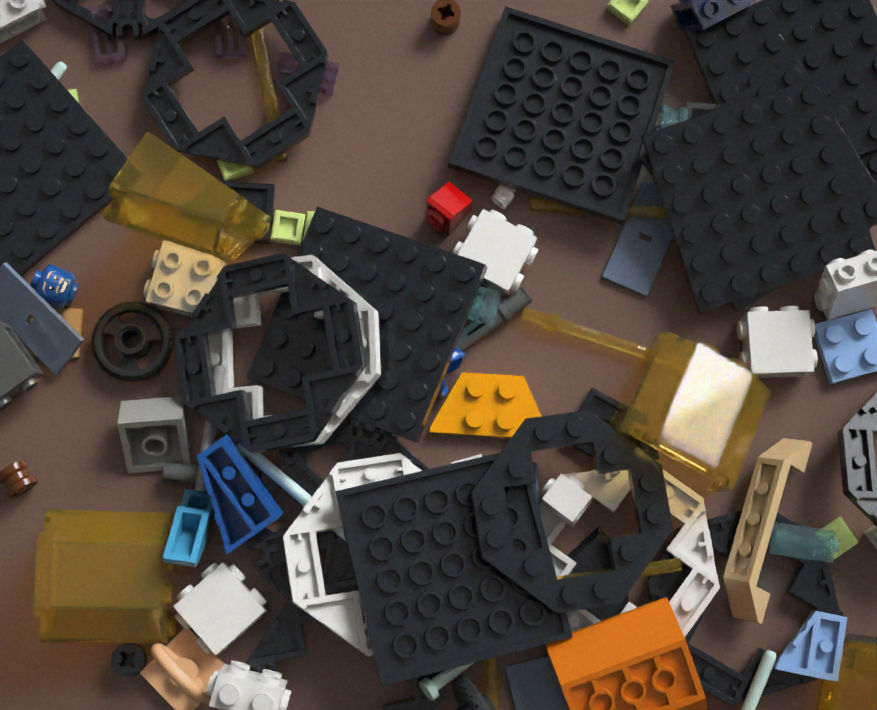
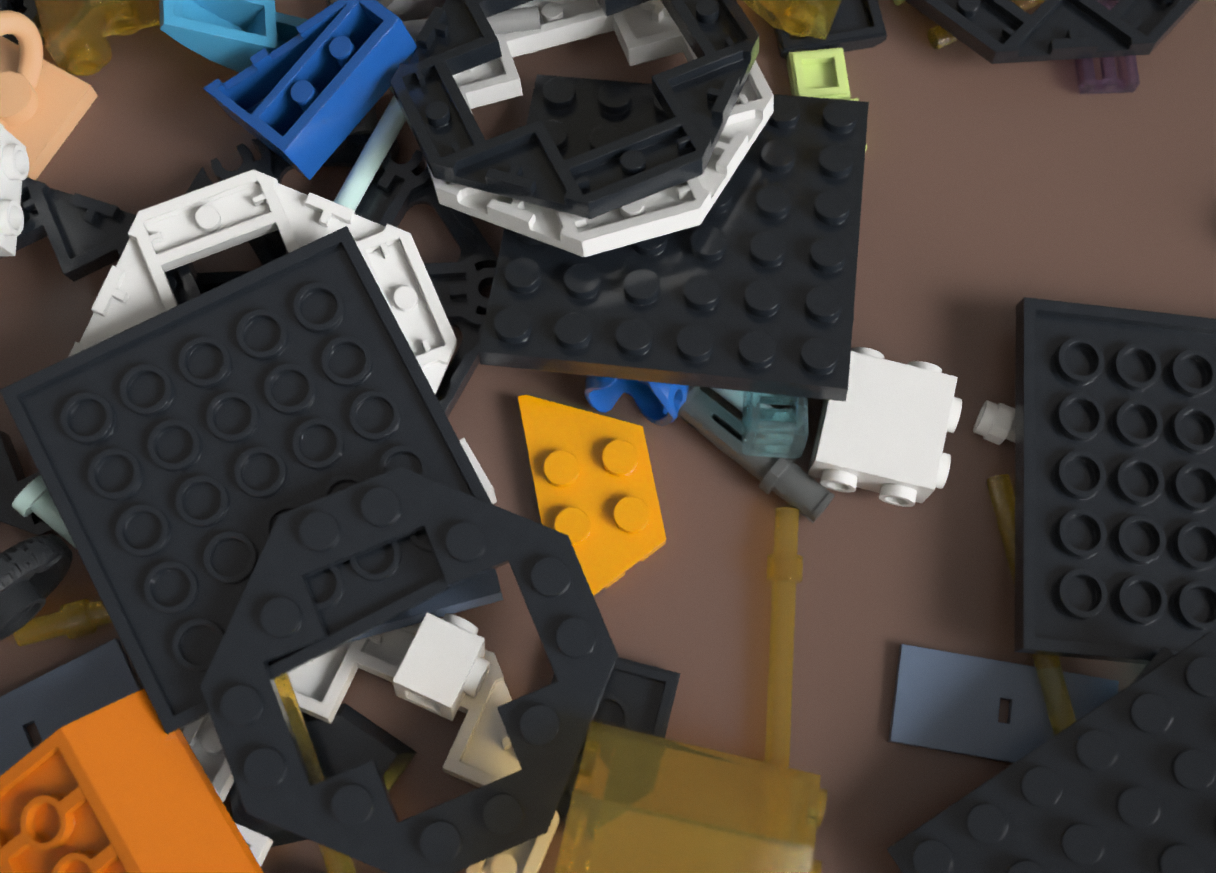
camera: 80 degrees right, 5 degrees down
(219, 607) = (126, 123): white brick -> none
(447, 208) = (938, 319): red slope -> none

